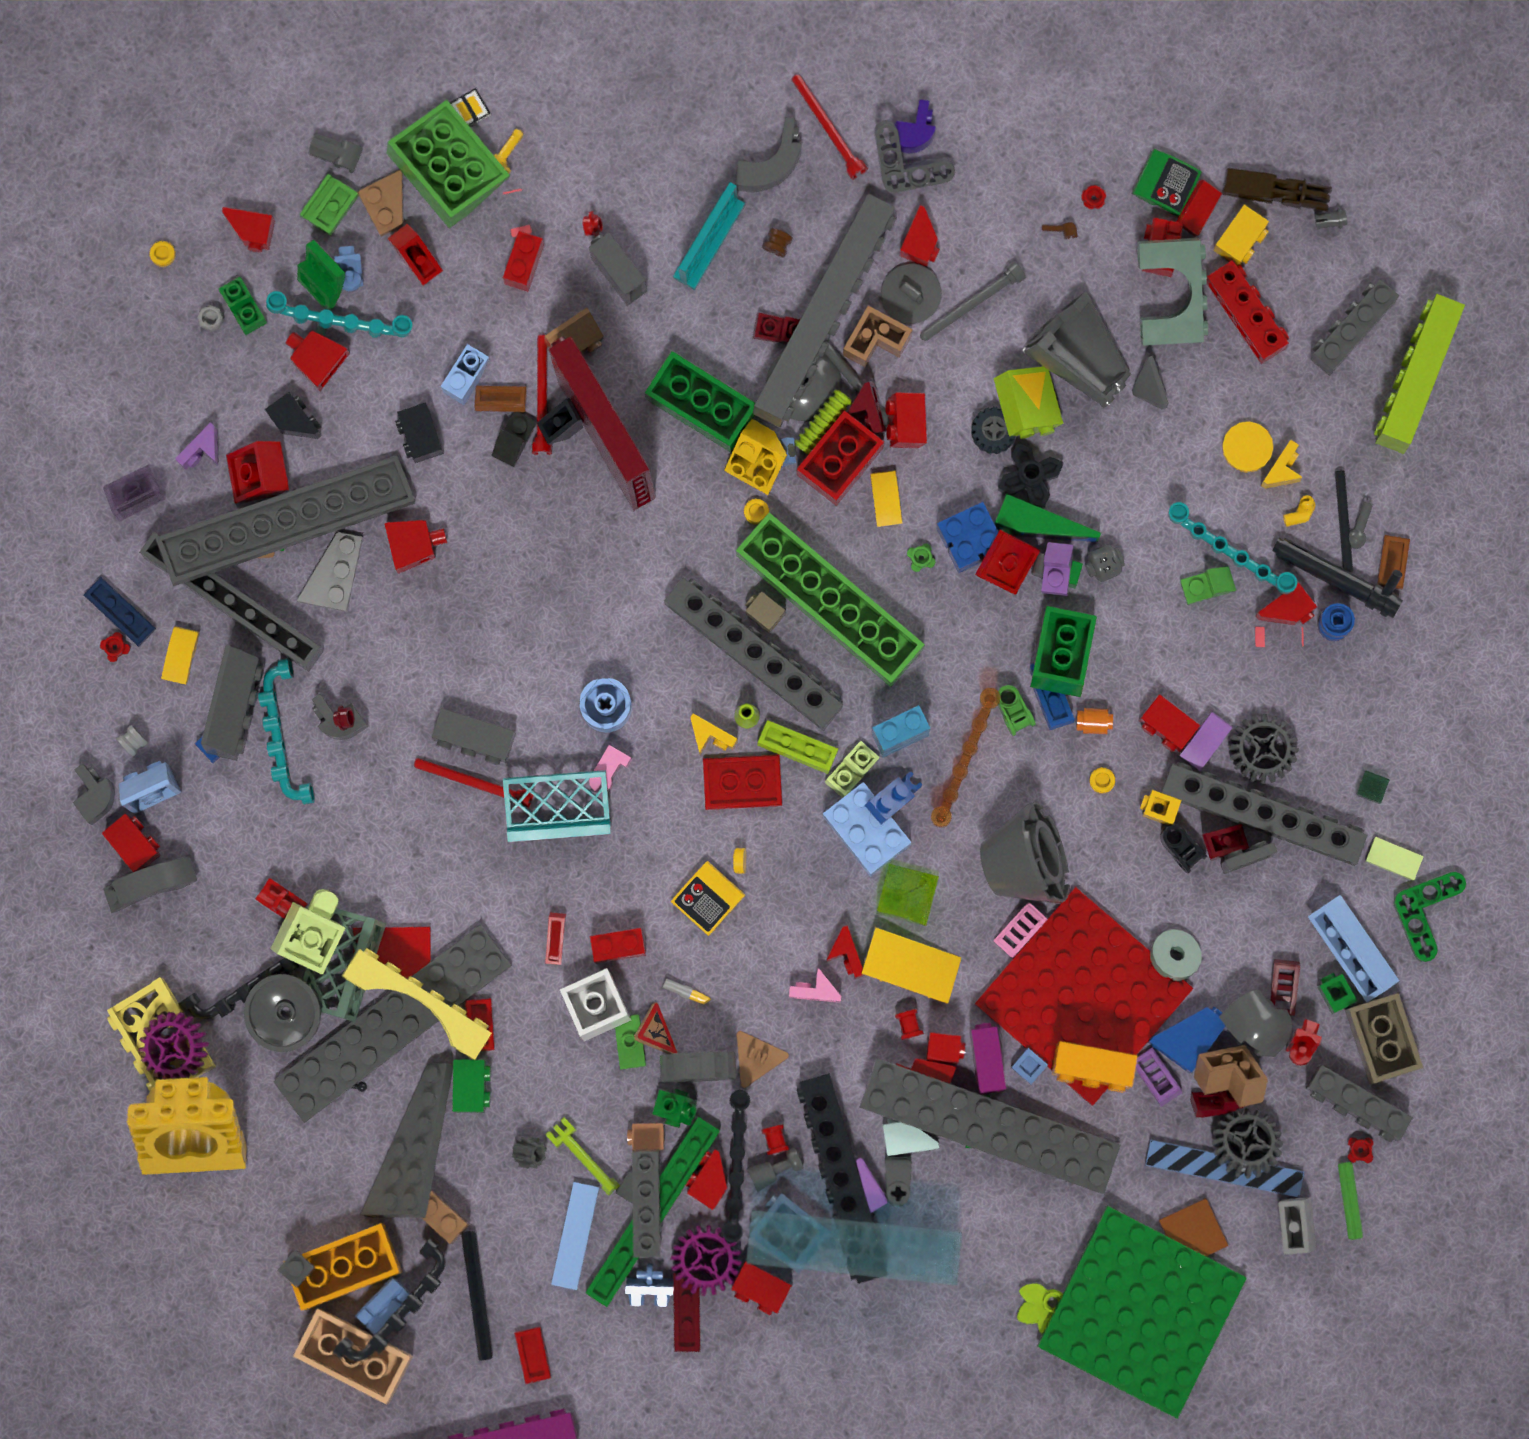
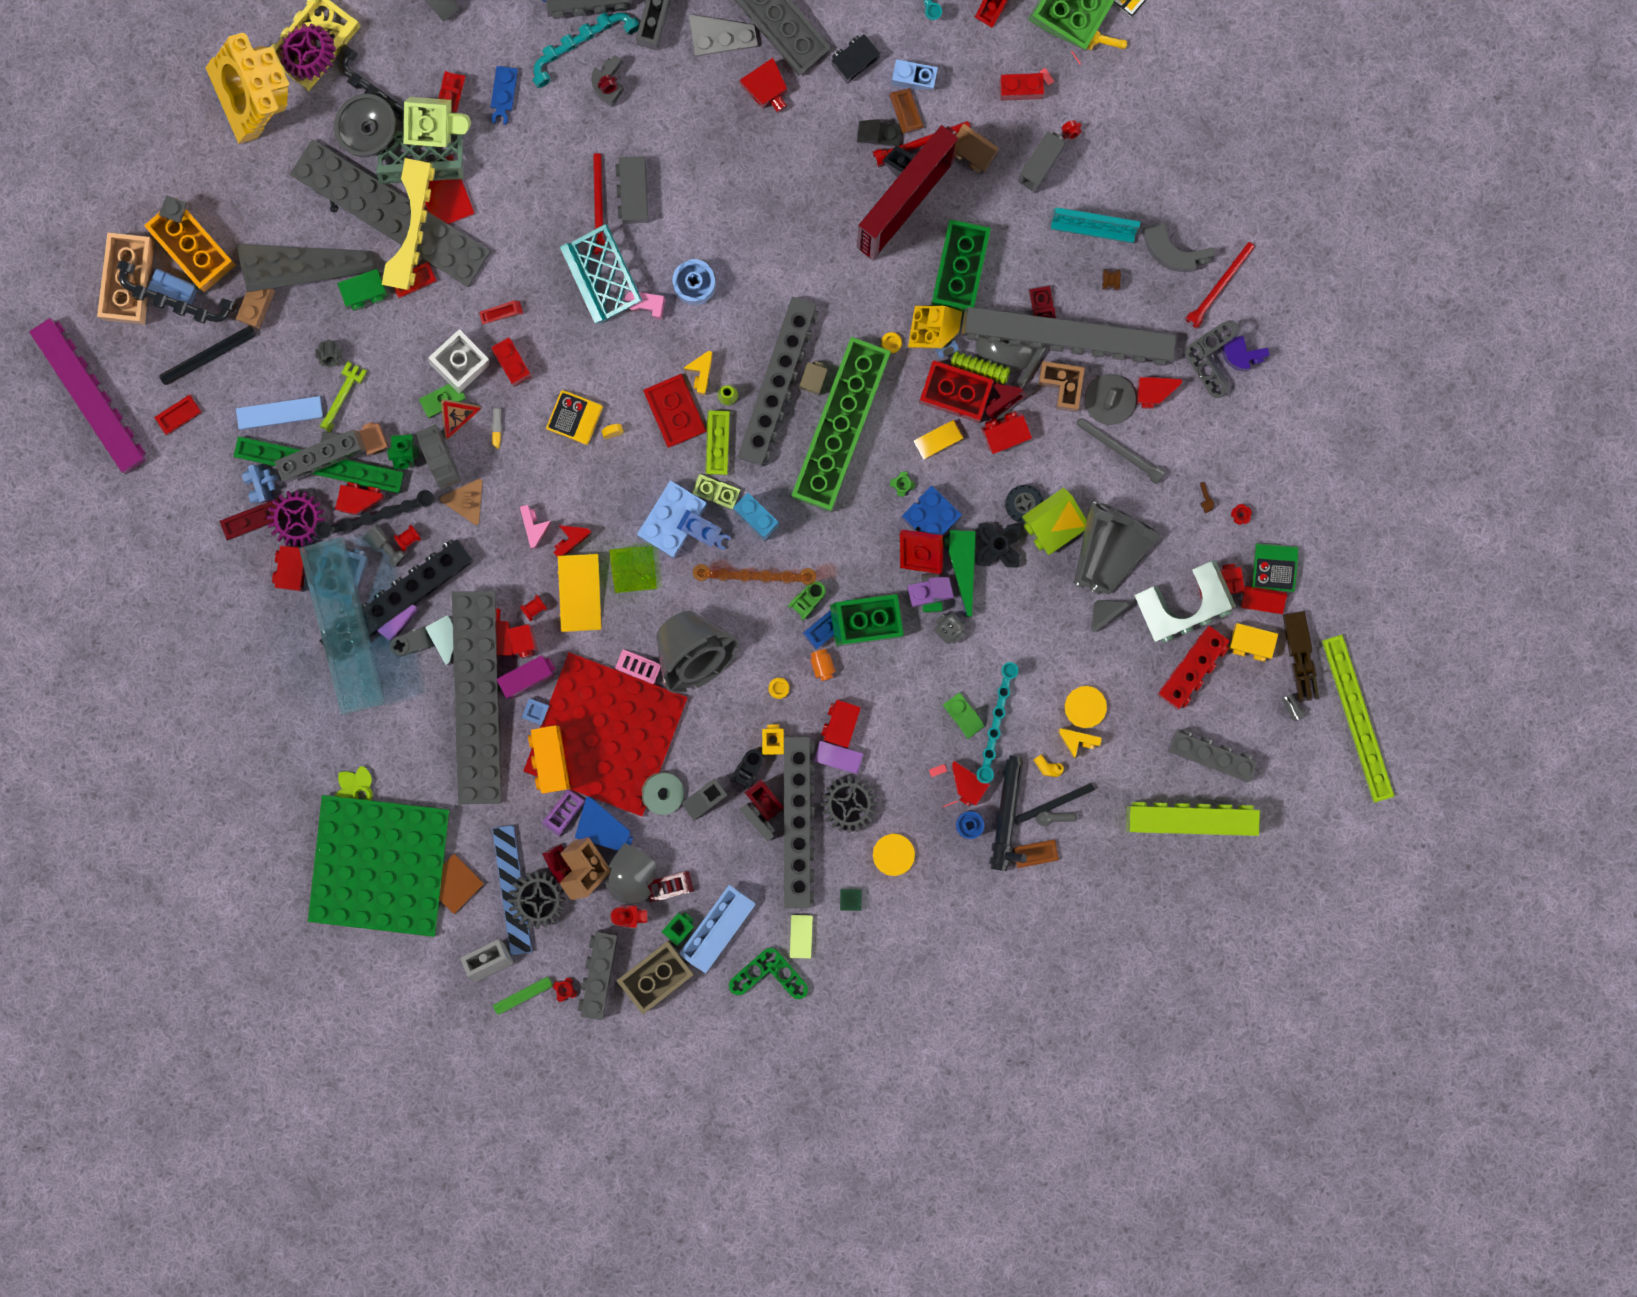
camera: 65 degrees right, 5 degrees up
(303, 842) = (503, 92): none -> blue plate
(1199, 909) = (704, 799): none -> dark grey slope
(1338, 720) = (893, 854): none -> yellow tile
(1368, 154) = (1357, 718): none -> lime tile

